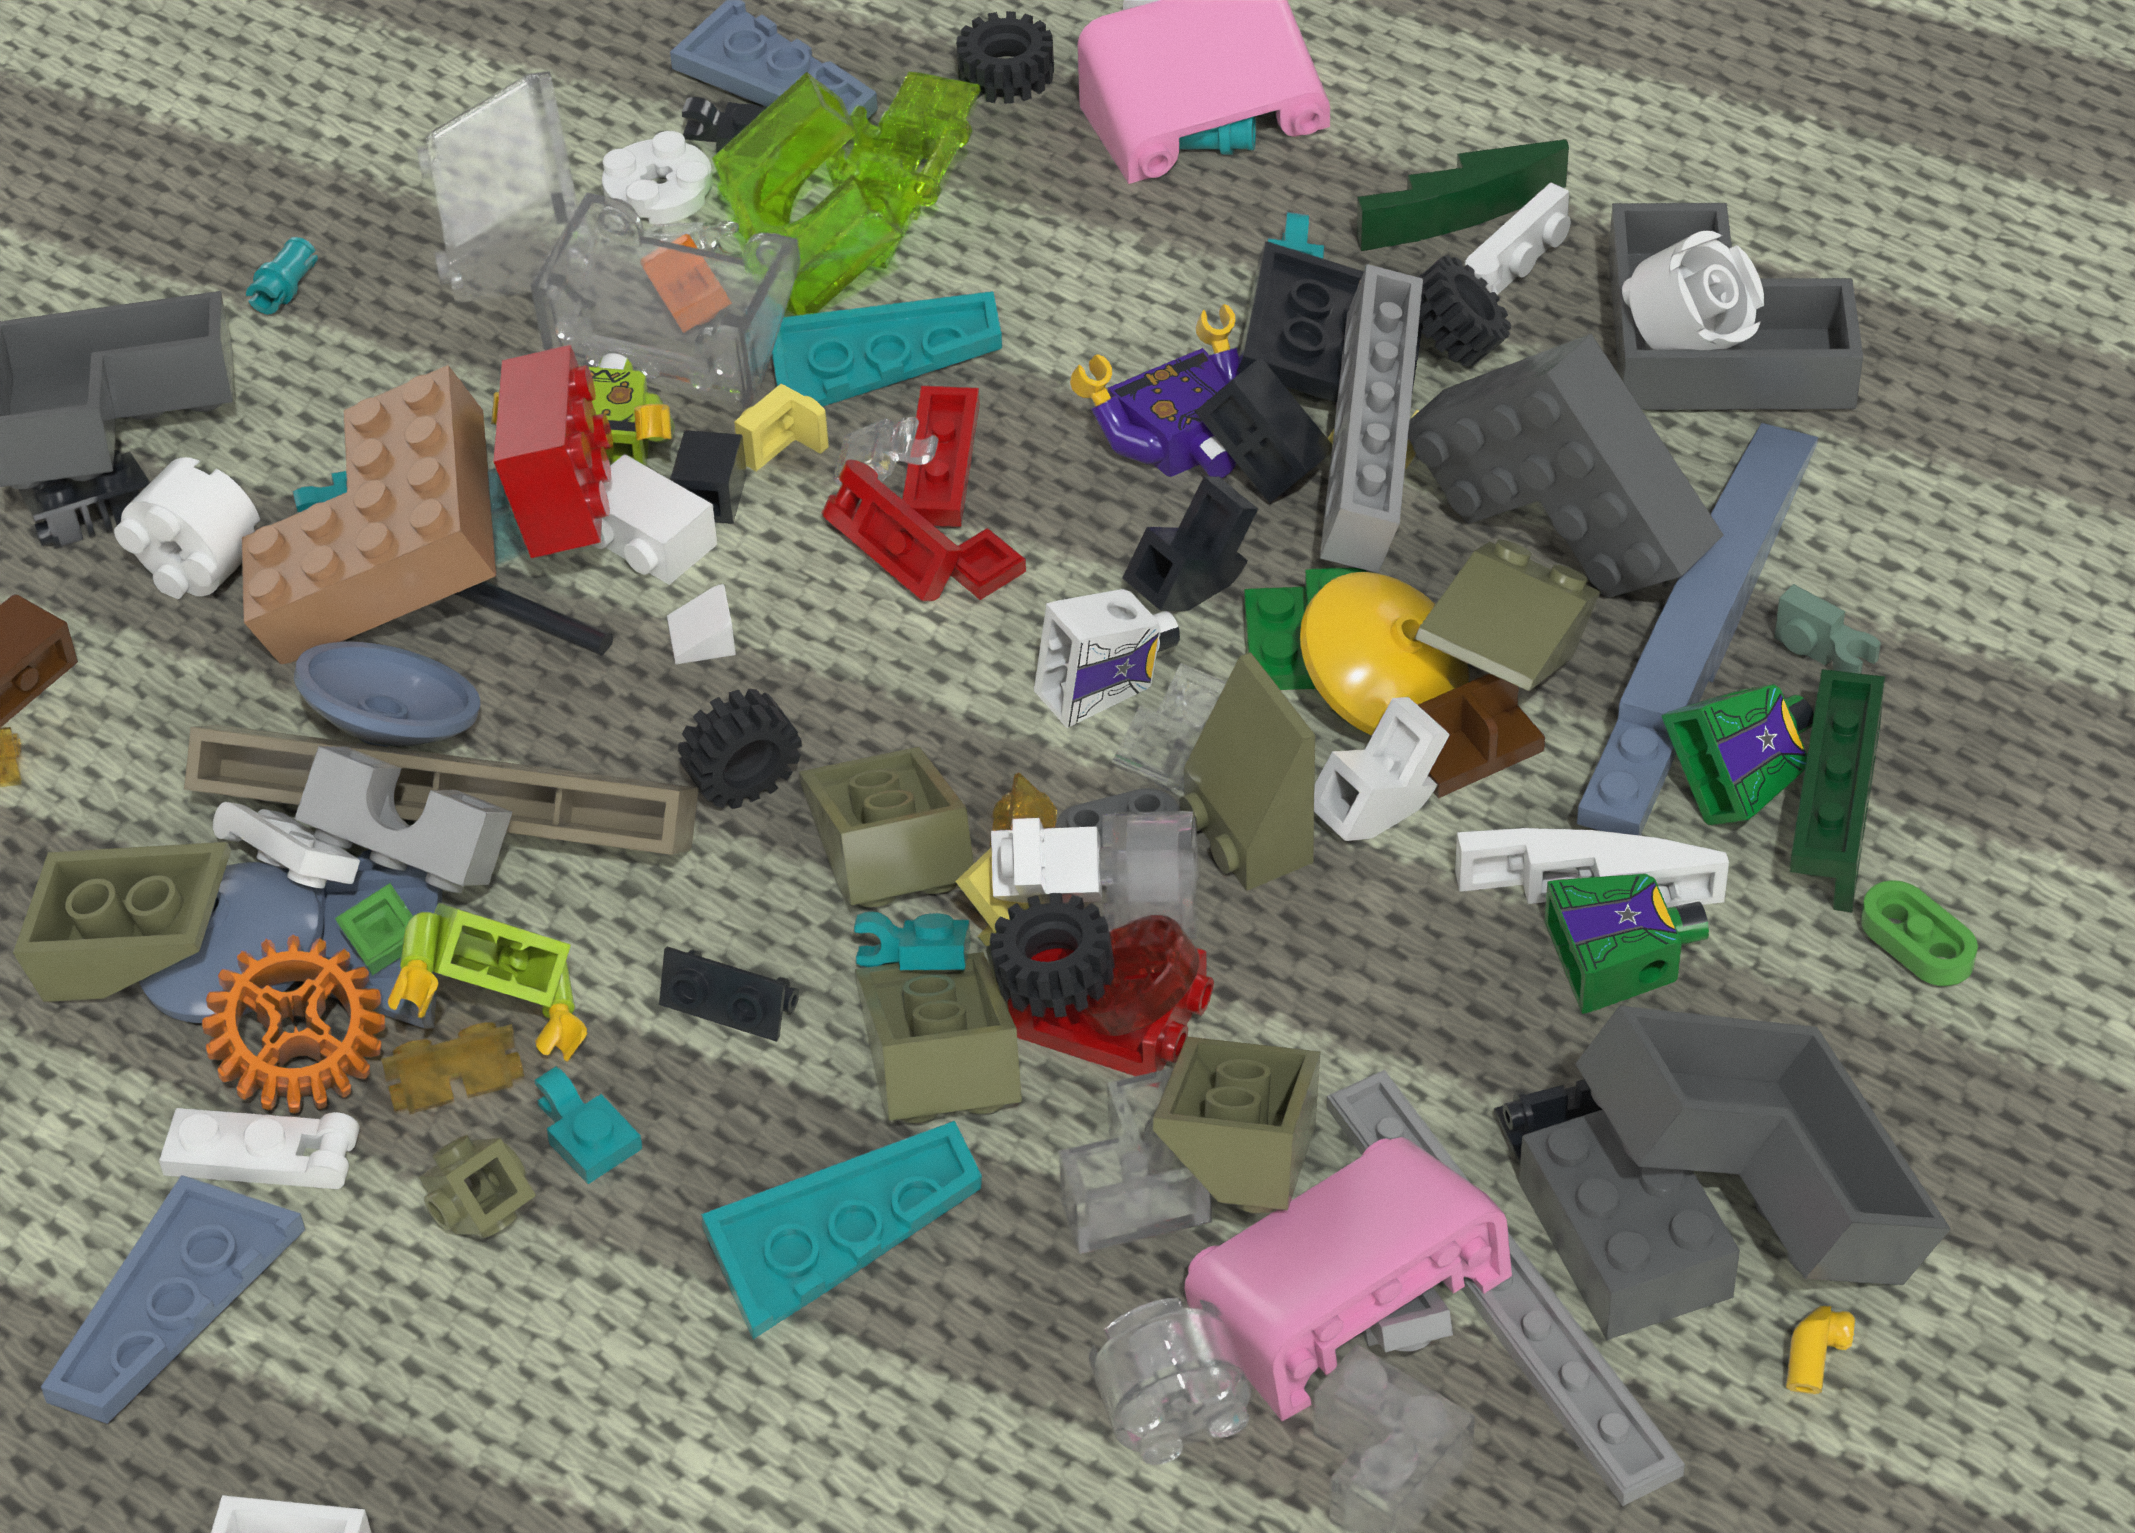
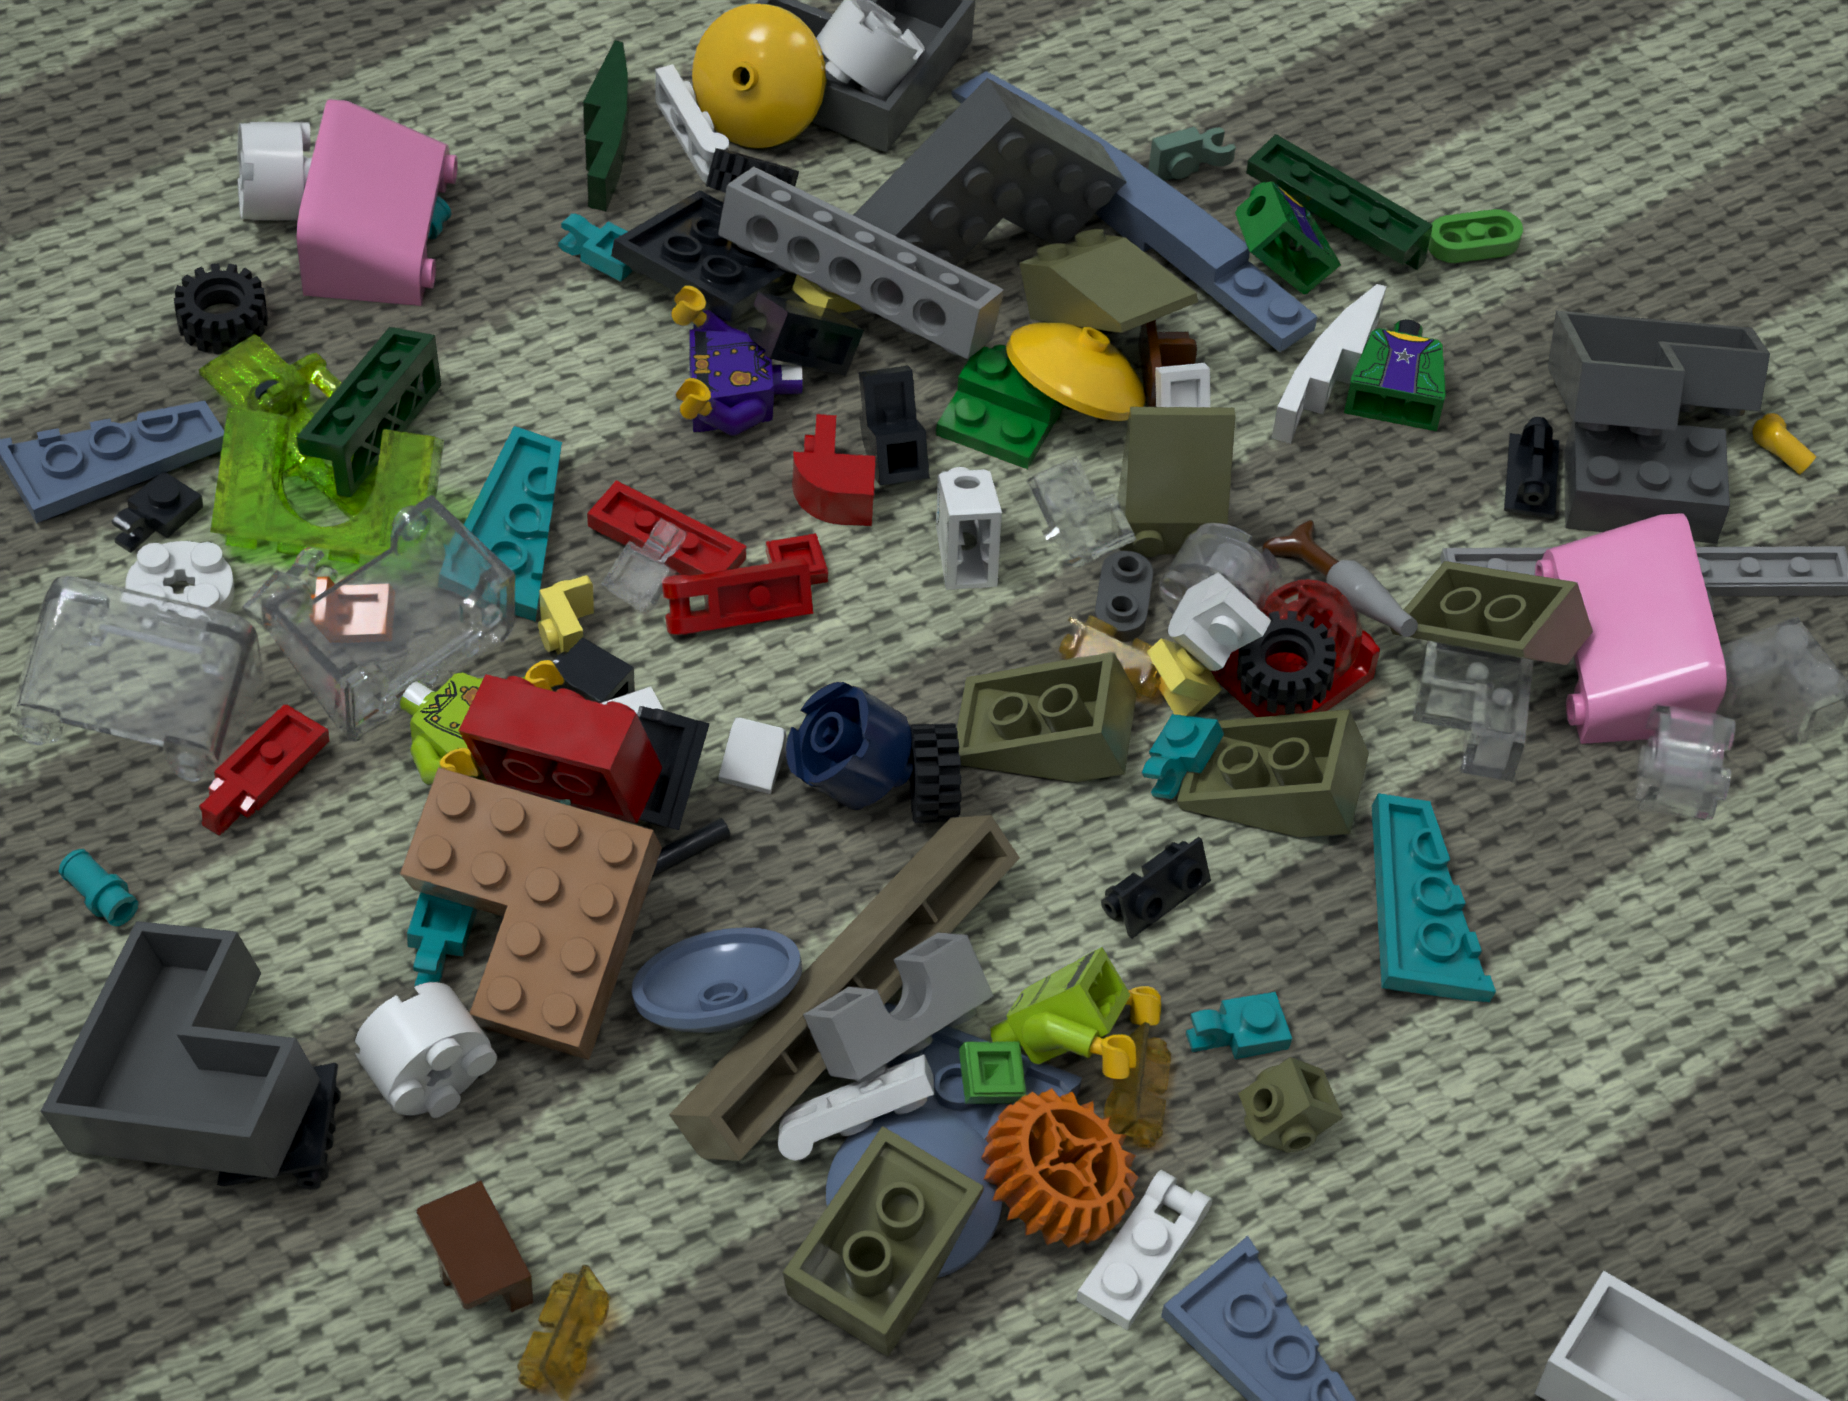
camera: 70 degrees left, 5 degrees up
(469, 312) = (261, 767): none -> red hinge
(628, 550) = (678, 747): none -> black hinge
(725, 661) = (850, 746): none -> dark blue brick
(942, 173) = (375, 396): none -> dark green fence
(1101, 534) = (832, 484): none -> red brick
(1245, 982) = (1348, 576): none -> light grey piece
(1595, 248) = (783, 70): none -> yellow dish

